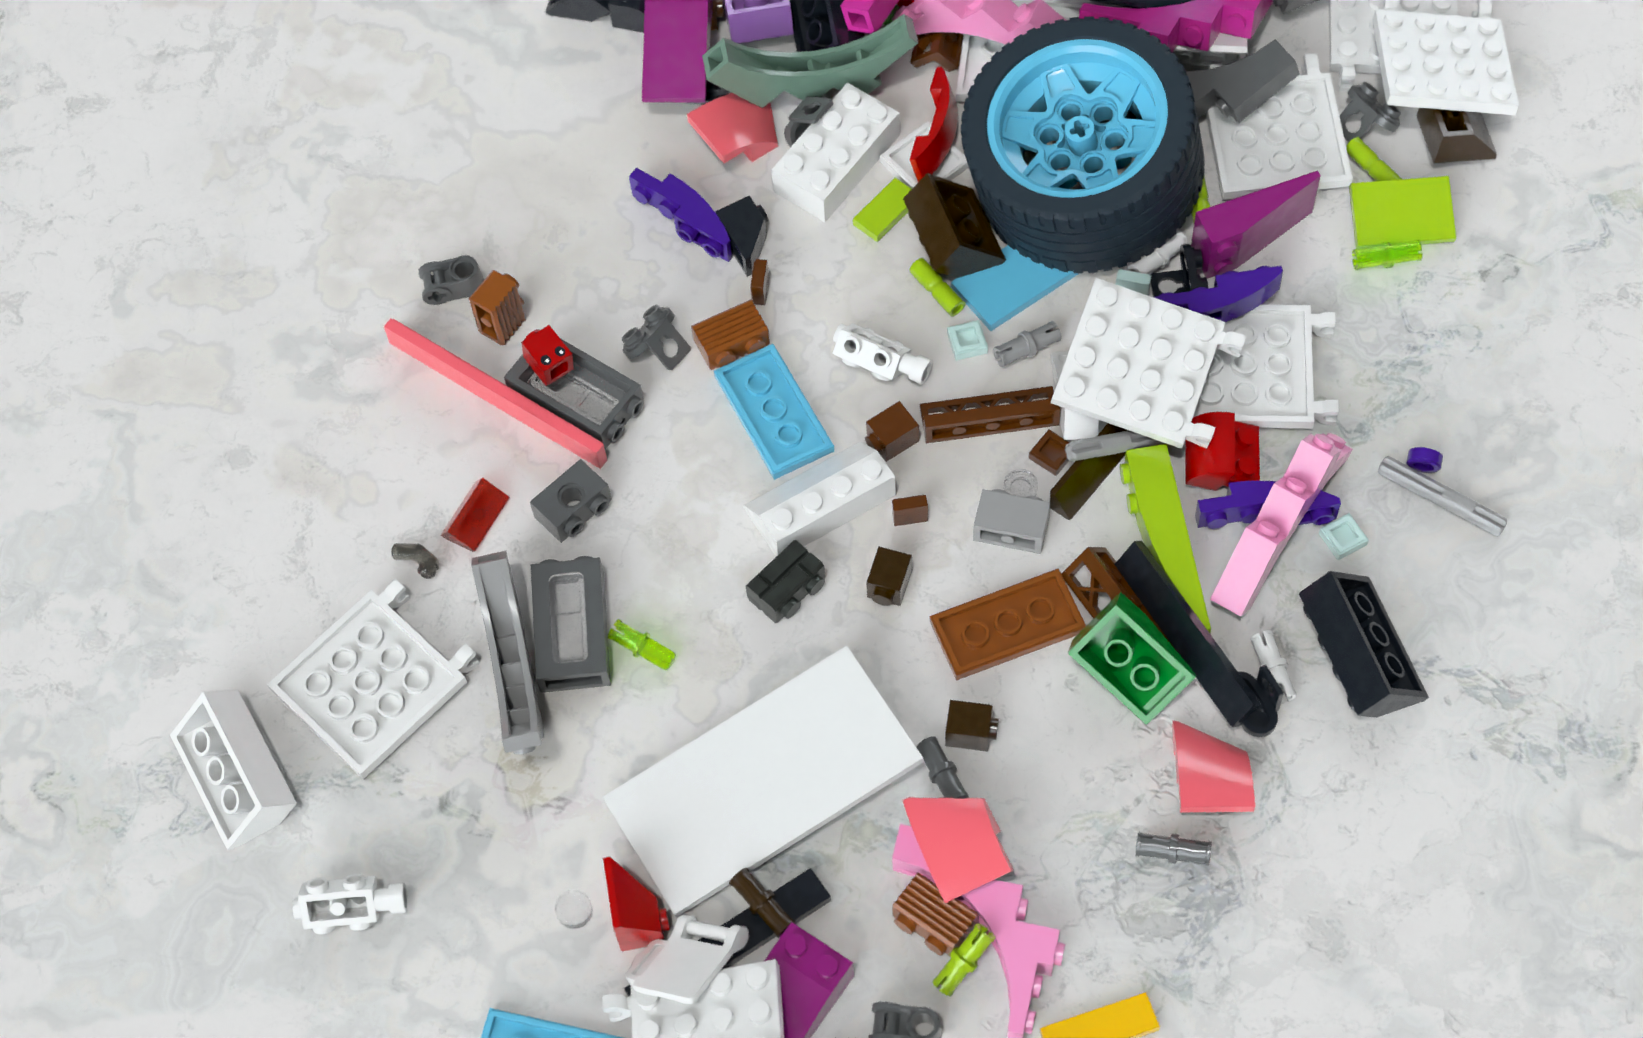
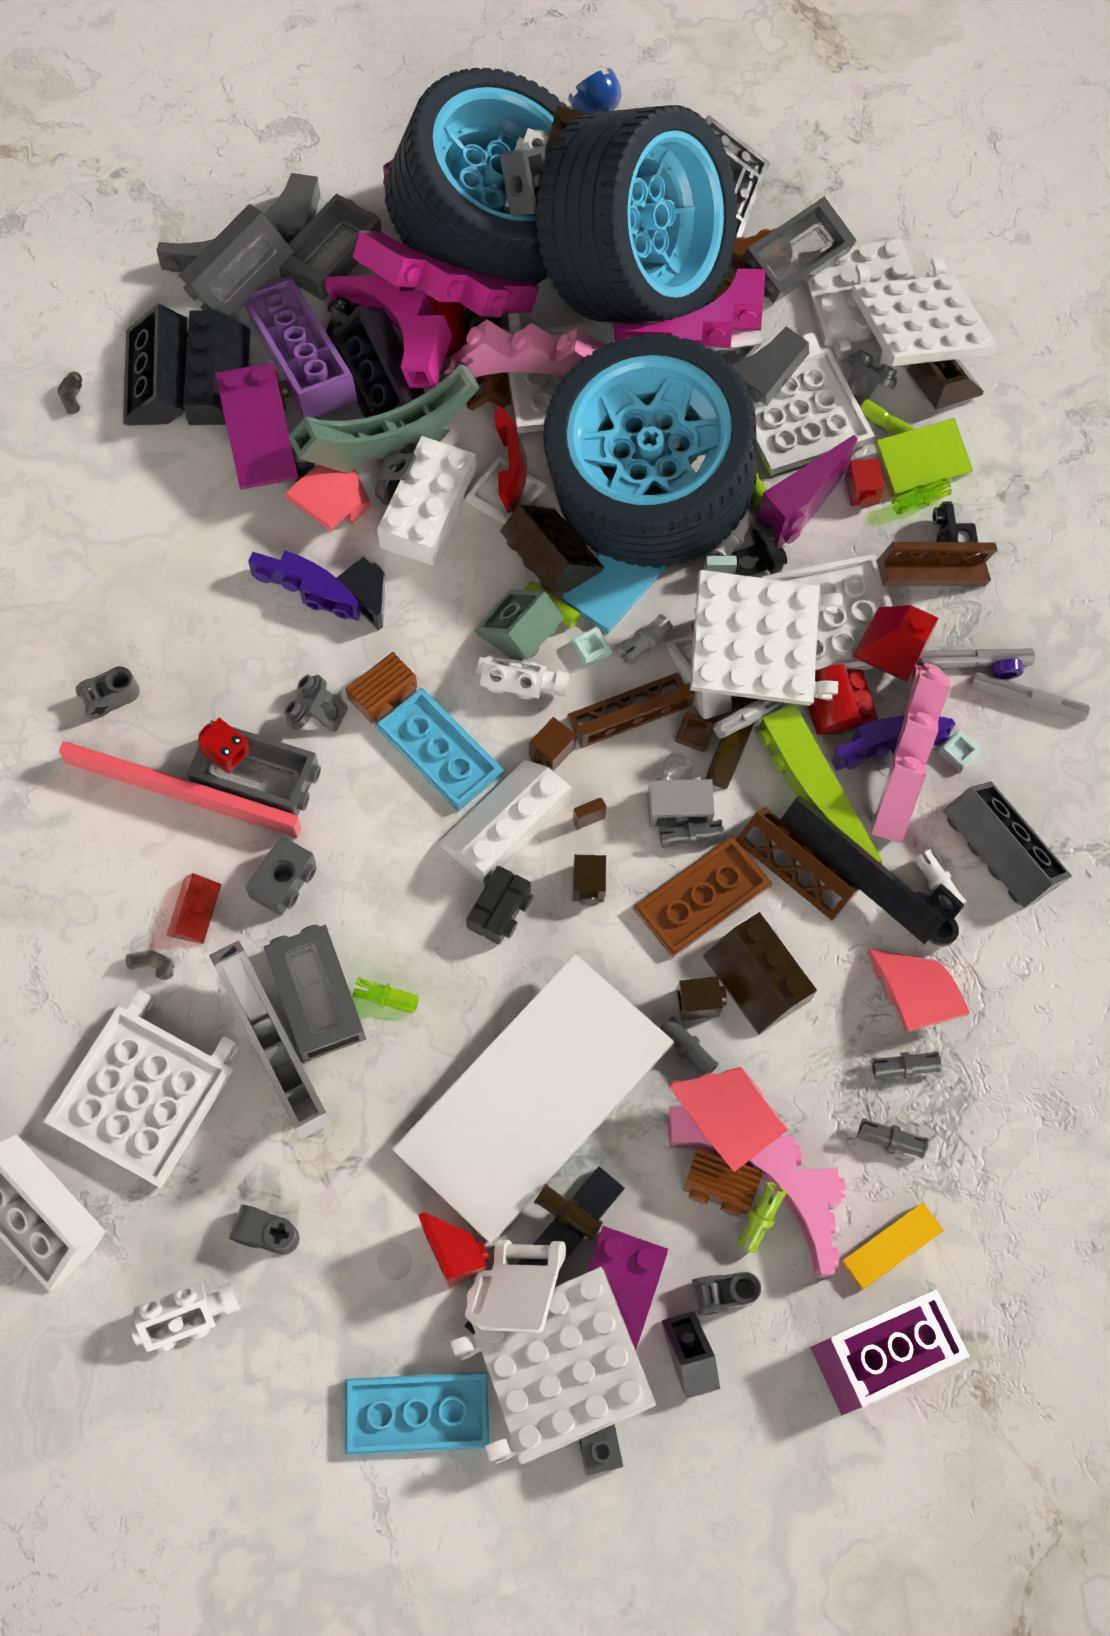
camera: 25 degrees left, 5 degrees up
(452, 845) = (258, 1230): none -> dark grey piece
(498, 307) = (161, 708): dark orange brick -> none
(759, 281) = (393, 633): reddish brown tile -> none
(883, 210) = (483, 544): lime tile -> none
(897, 299) = (521, 623): none -> sand green slope
(1014, 556) = (691, 833): none -> dark grey pin
(1042, 716) = (760, 973): none -> dark brown slope
(1131, 658) = (822, 903): green slope -> none
(1134, 919) = (892, 1138): none -> dark grey pin
(1232, 293) = (808, 558): dark purple slope -> none
(1302, 400) = (896, 639): none -> red slope
(1325, 227) = (864, 482): none -> red brick
(1375, 332) = (942, 565): none -> reddish brown fence
(1391, 440) = (976, 657): none -> light grey axle
(1398, 306) = (945, 518): none -> black bracket

